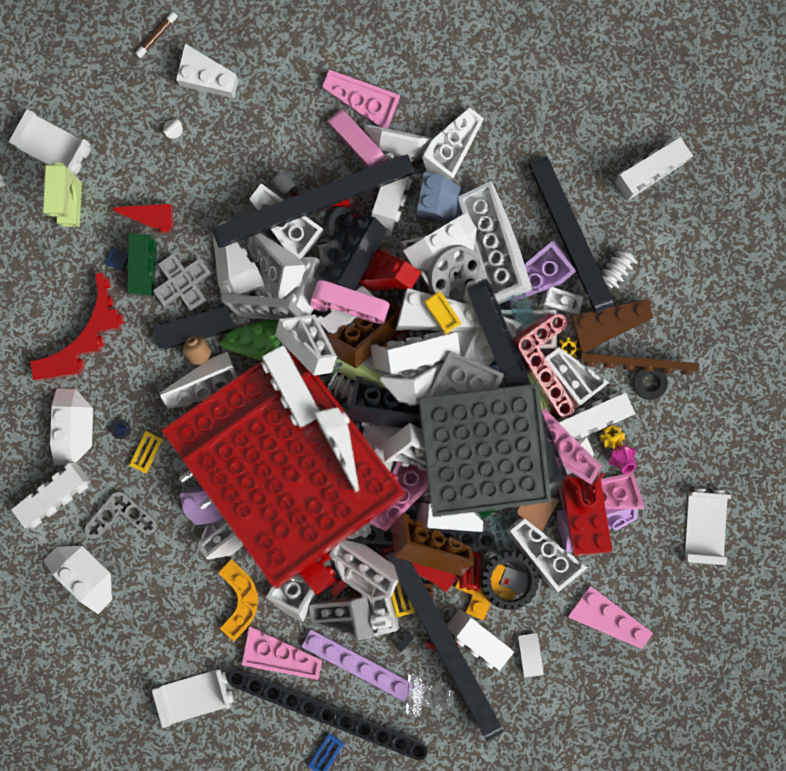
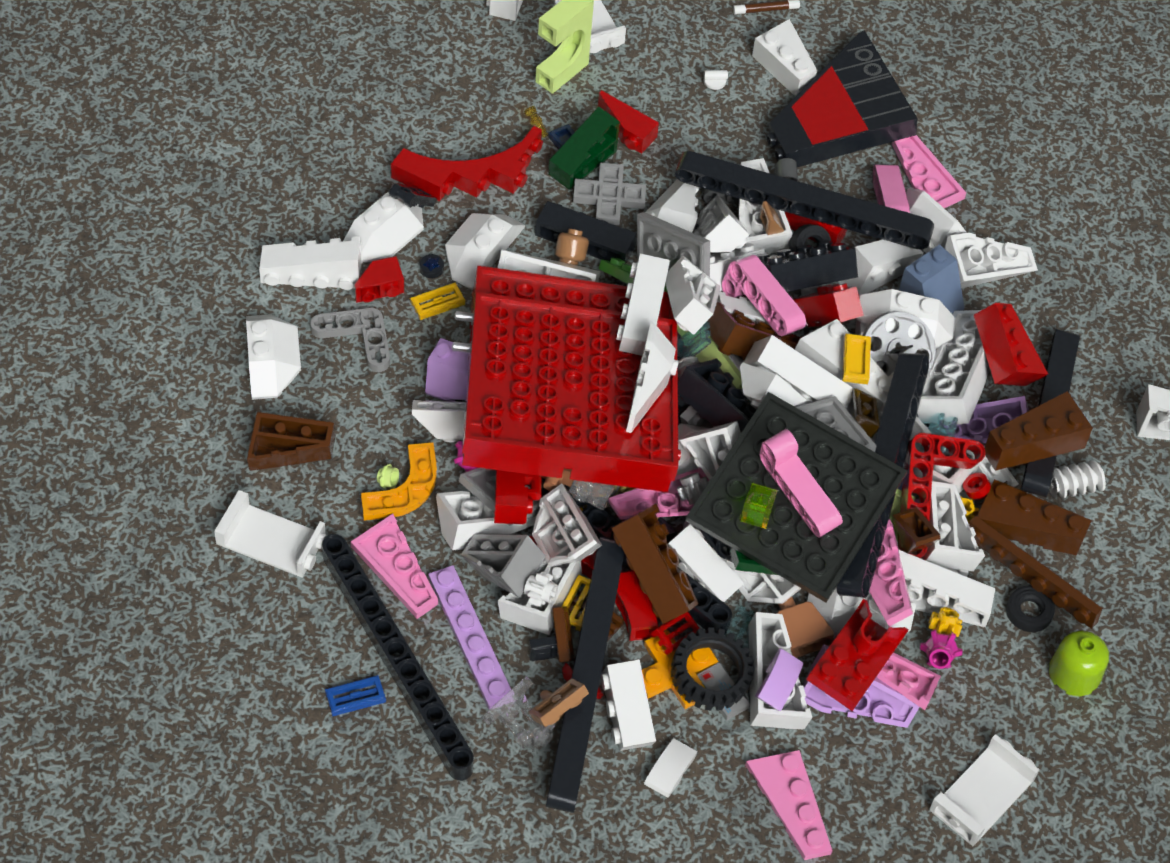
camera: 30 degrees right, 30 degrees down
(69, 395) = (412, 195): none -> black plate
(87, 260) = (536, 120): none -> clear yellow piece
(100, 469) = (380, 280): none -> red slope
(136, 389) = (479, 244): none -> white wedge
(148, 631) = (289, 441): none -> reddish brown wedge
(224, 602) = (388, 476): none -> yellowish green plate
(274, 89) = (843, 109): none -> black slope
(304, 232) = (770, 219): none -> medium nougat slope
(411, 627) = (563, 634): none -> reddish brown tile
(414, 481) = (692, 487): none -> light grey gear
(449, 684) = (558, 702): none -> medium nougat plate
(471, 480) = (758, 505): none -> clear neon green slope
(475, 346) = (866, 411): none -> dark brown slope
(487, 450) = (798, 484): none -> bright pink beam
(518, 214) = (1008, 346): none -> red wedge
(558, 566) = (780, 679): none -> lavender slope
(562, 405) = (915, 530): none -> reddish brown slope
(569, 331) = (977, 486): none -> red tile
(585, 270) = (1039, 434): none -> reddish brown wedge
(704, 403) = (1079, 663): none -> lime cylinder

